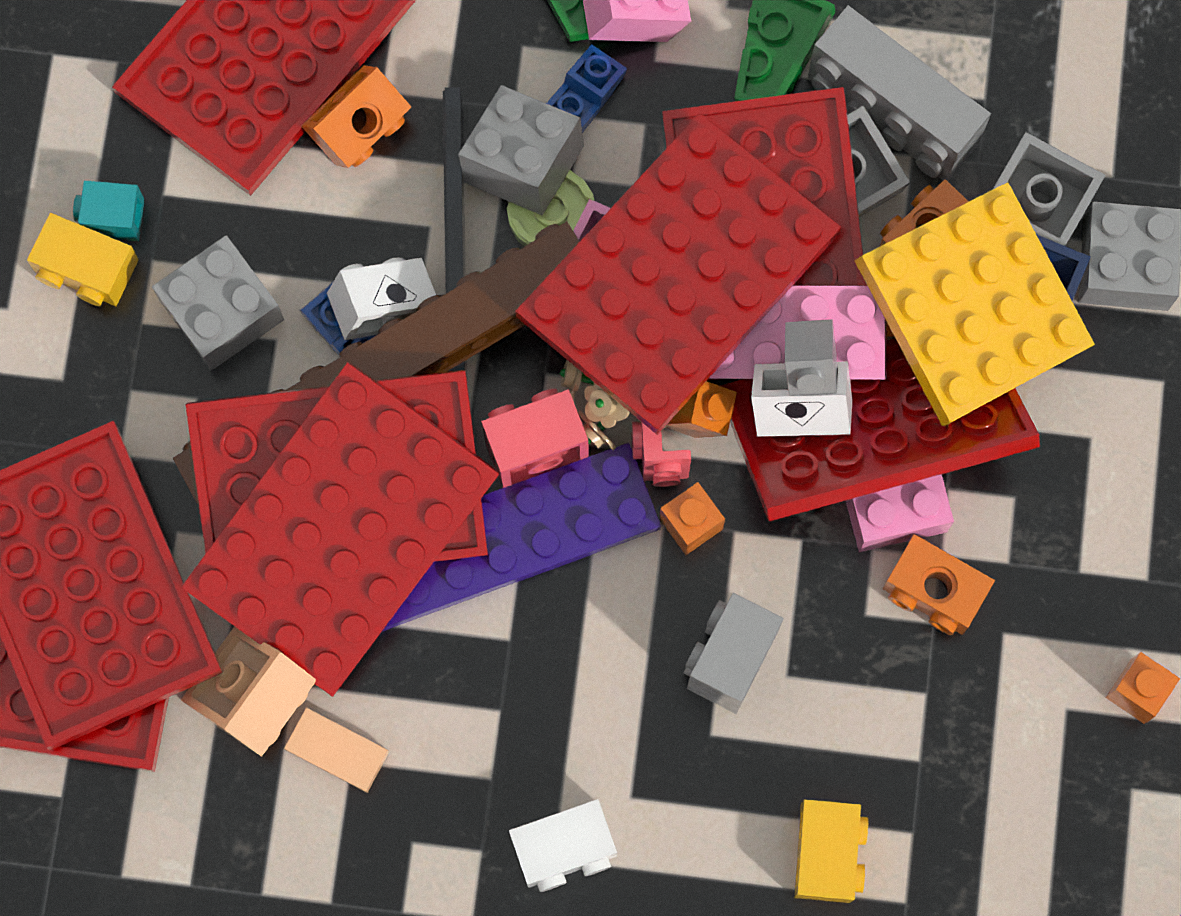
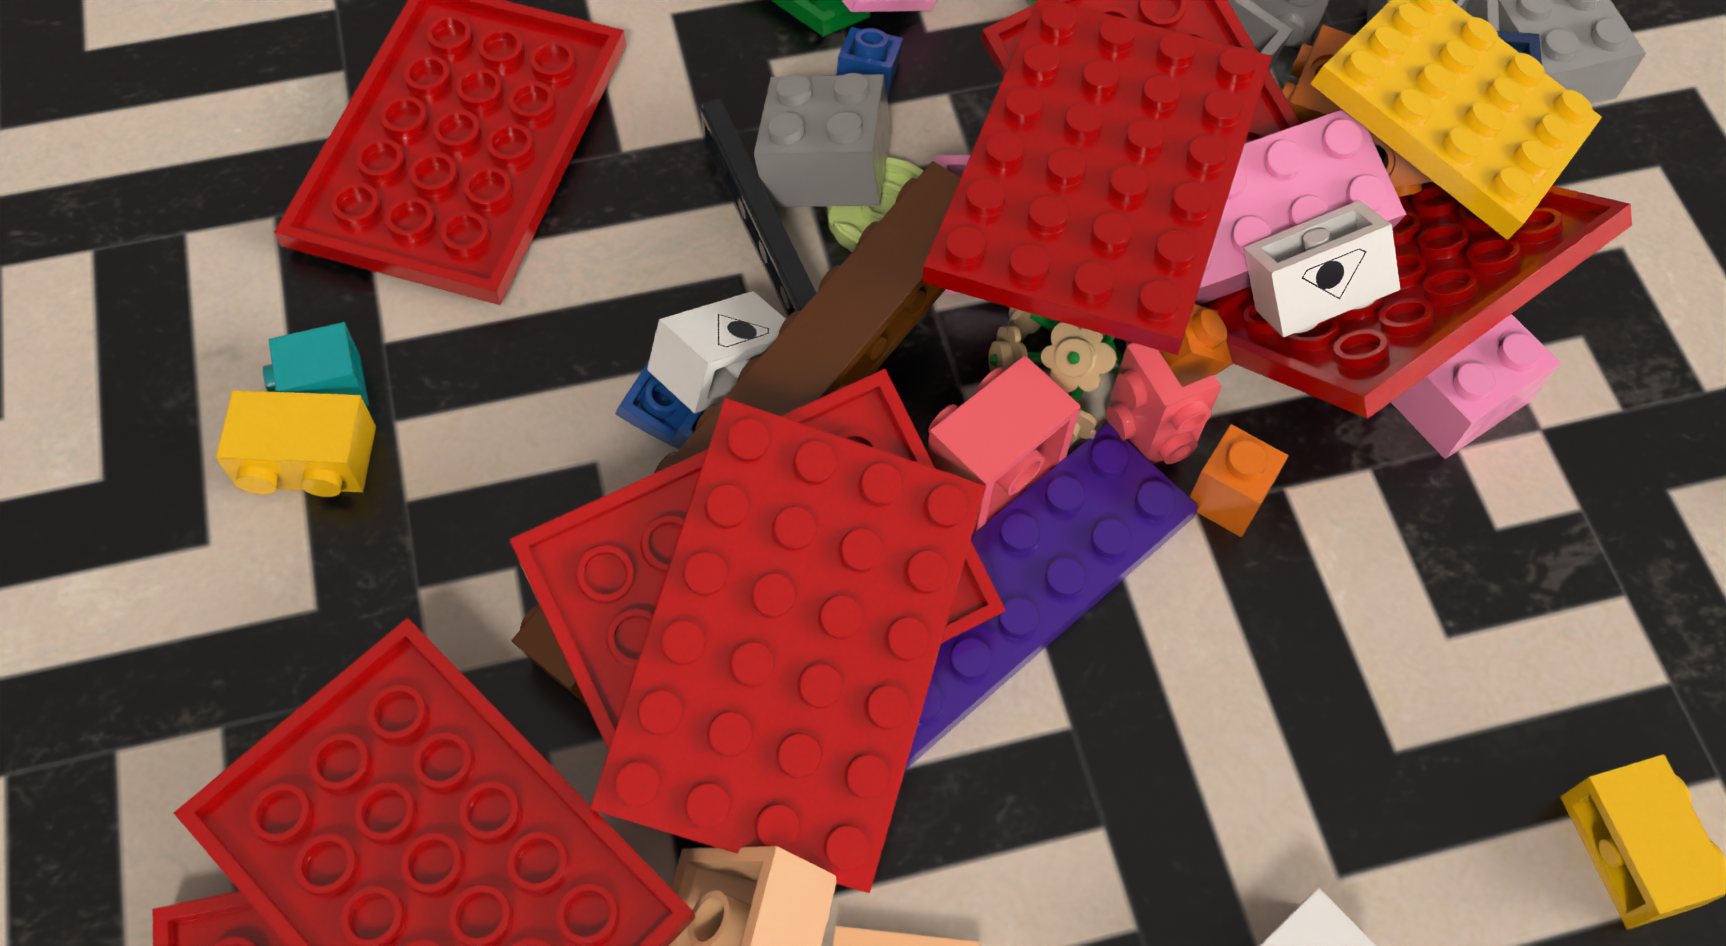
camera: 25 degrees left, 15 degrees down
(218, 302) = (503, 432): light grey brick -> none
(332, 122) = (582, 190): orange brick -> none
(734, 653) = (1390, 619): light grey brick -> none
(810, 357) = (1325, 197): light grey brick -> none
(964, 584) = (1572, 454): orange brick -> none

